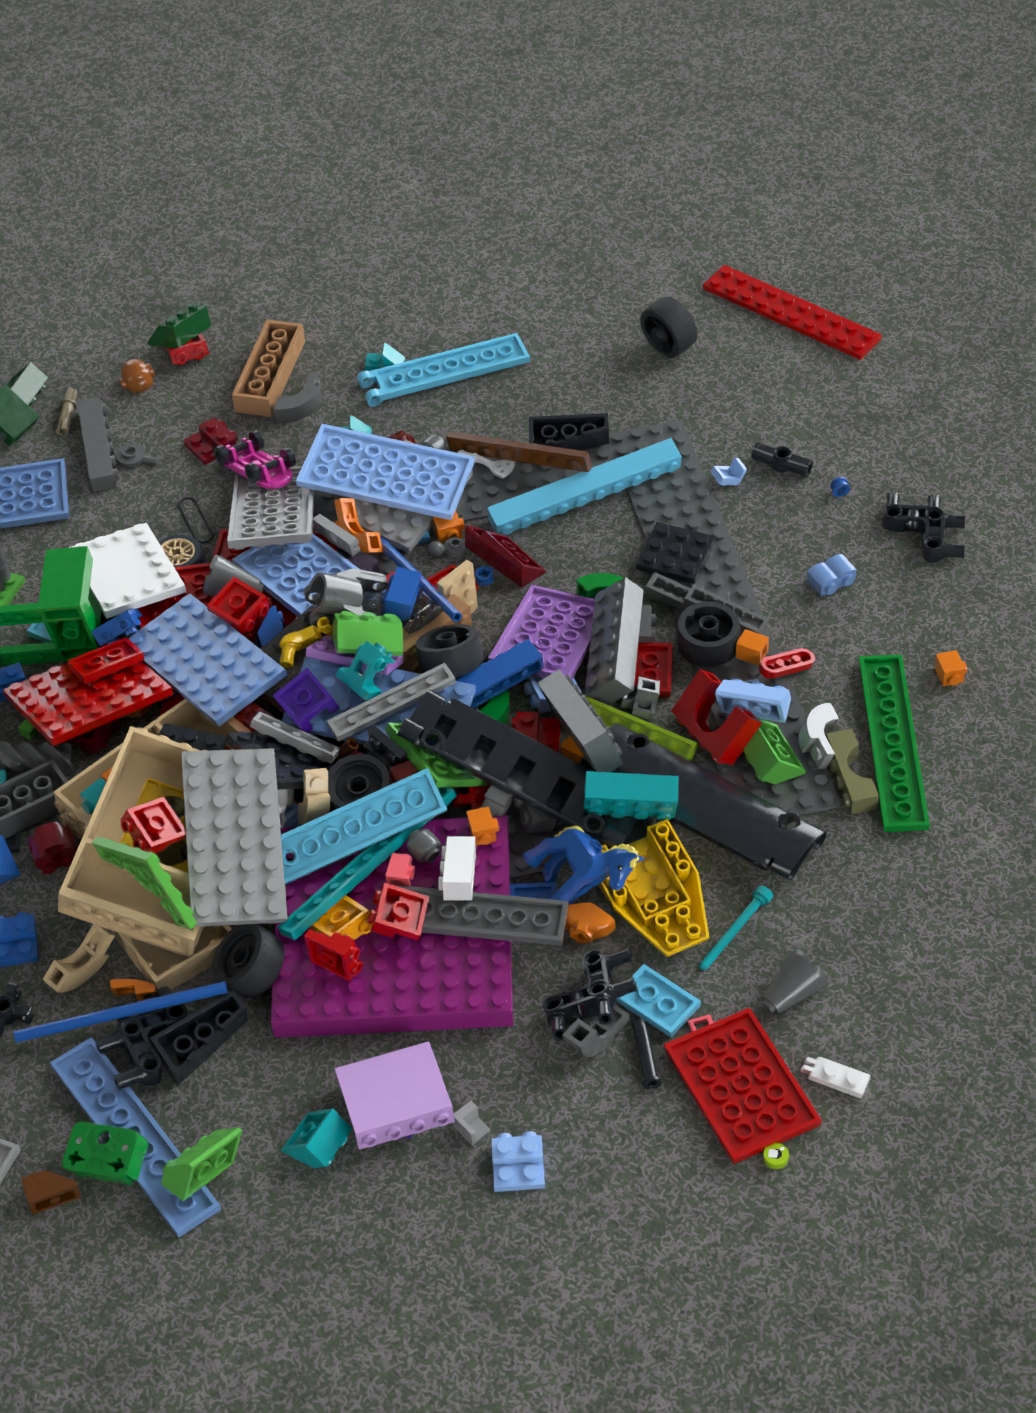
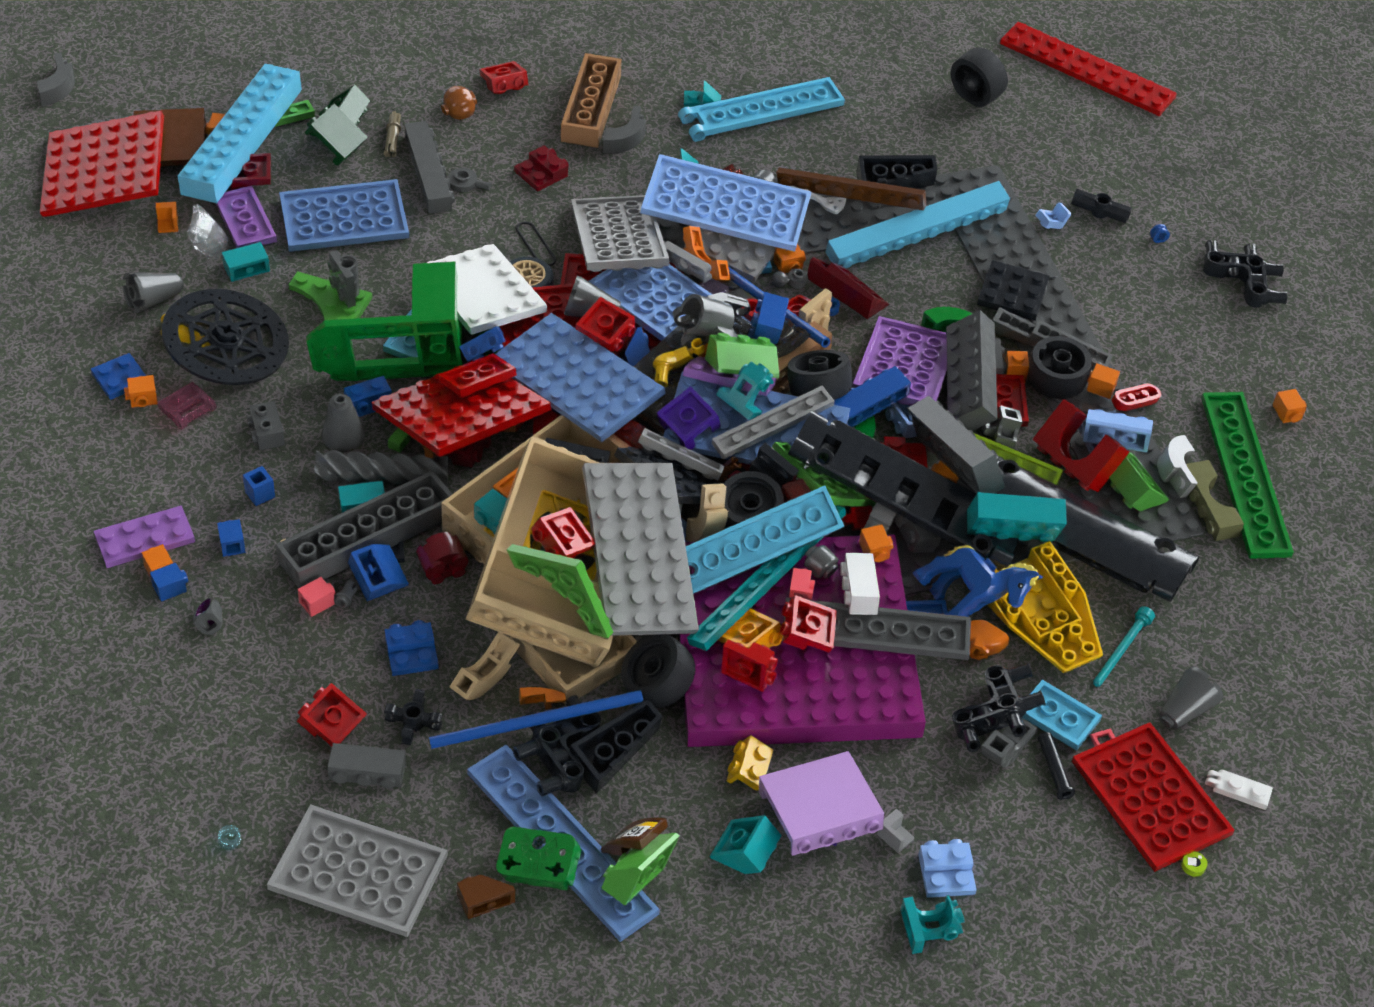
camera: 10 degrees left, 0 degrees up
(181, 327) = (500, 57): dark green slope -> none
(203, 1130) = (635, 835): none -> reddish brown slope
(257, 465) = (593, 192): piece -> none
(334, 1051) = (749, 762): none -> yellow bracket
(478, 1215) = (914, 921): none -> teal tile
(666, 631) = (1017, 363): none -> orange brick
(831, 575) = (1164, 316): medium blue brick -> none

